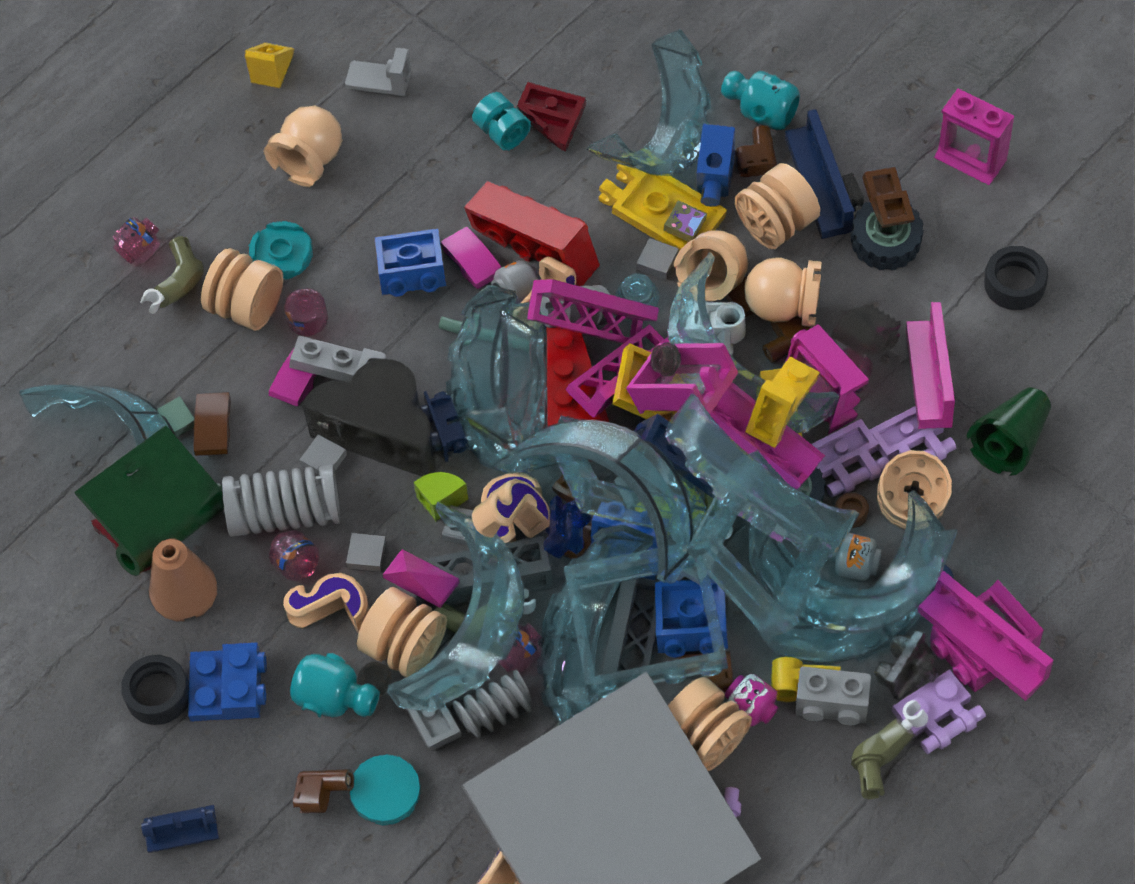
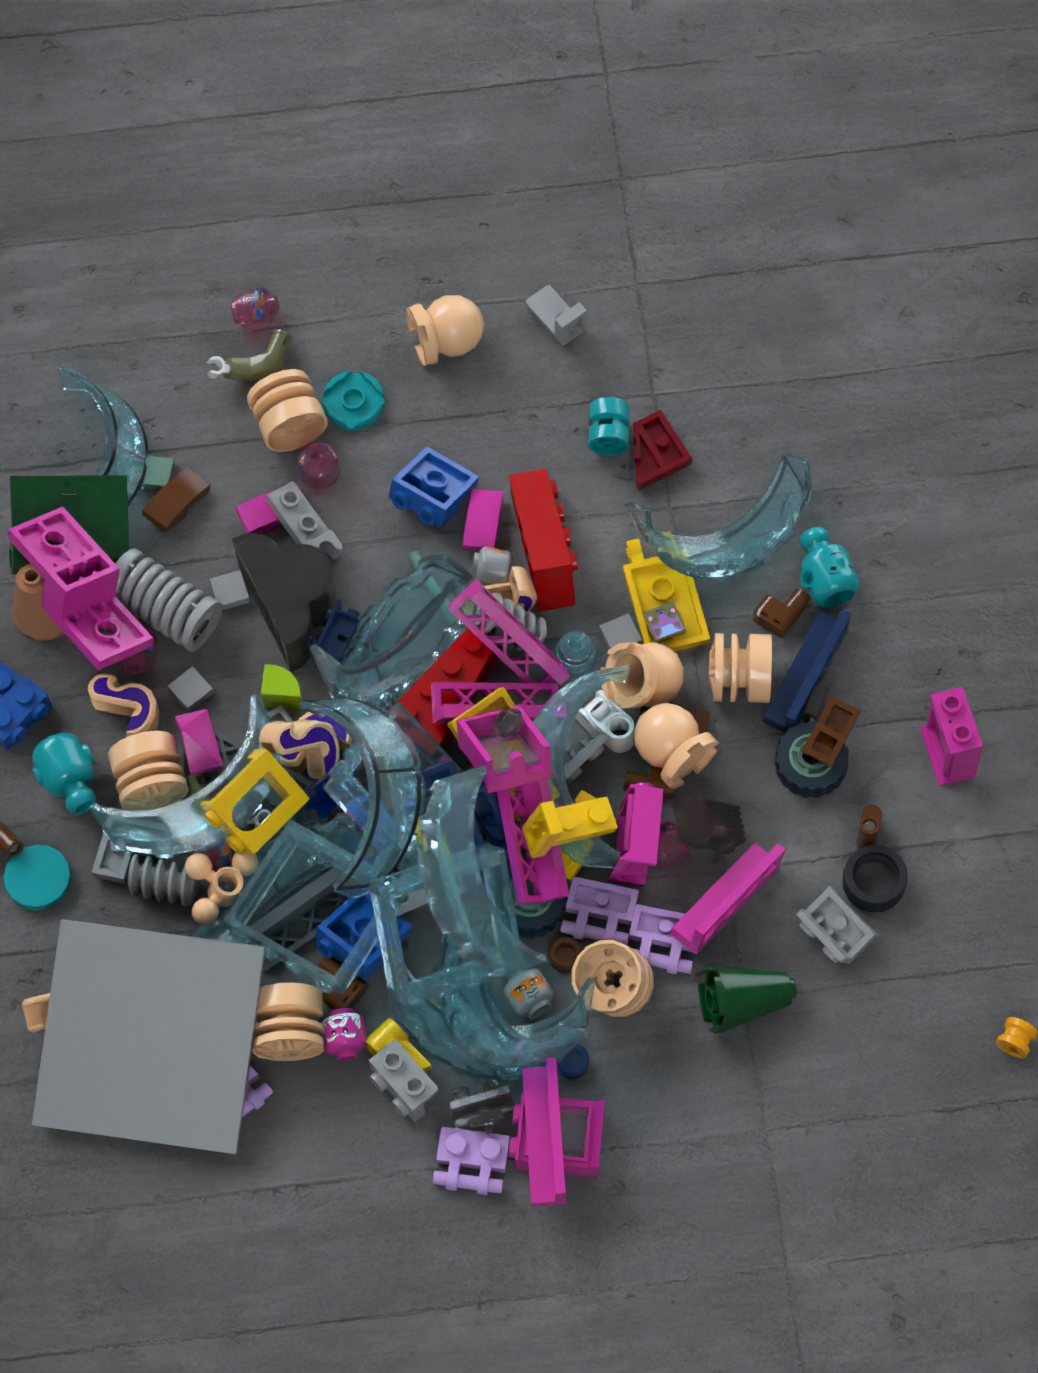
camera: 40 degrees right, 5 degrees up
(215, 532) = (80, 588): none -> dark pink bracket
(268, 63) = (486, 236): yellow slope -> none
(510, 546) = (221, 806): none -> yellow panel
(521, 664) = (200, 867): none -> light nougat piece
(715, 163) = (730, 595): blue torso -> none
(884, 747) = (400, 1151): olive arm -> none
(977, 246) = (869, 826): none -> reddish brown piece
(1025, 330) = (836, 926): none -> light grey bracket

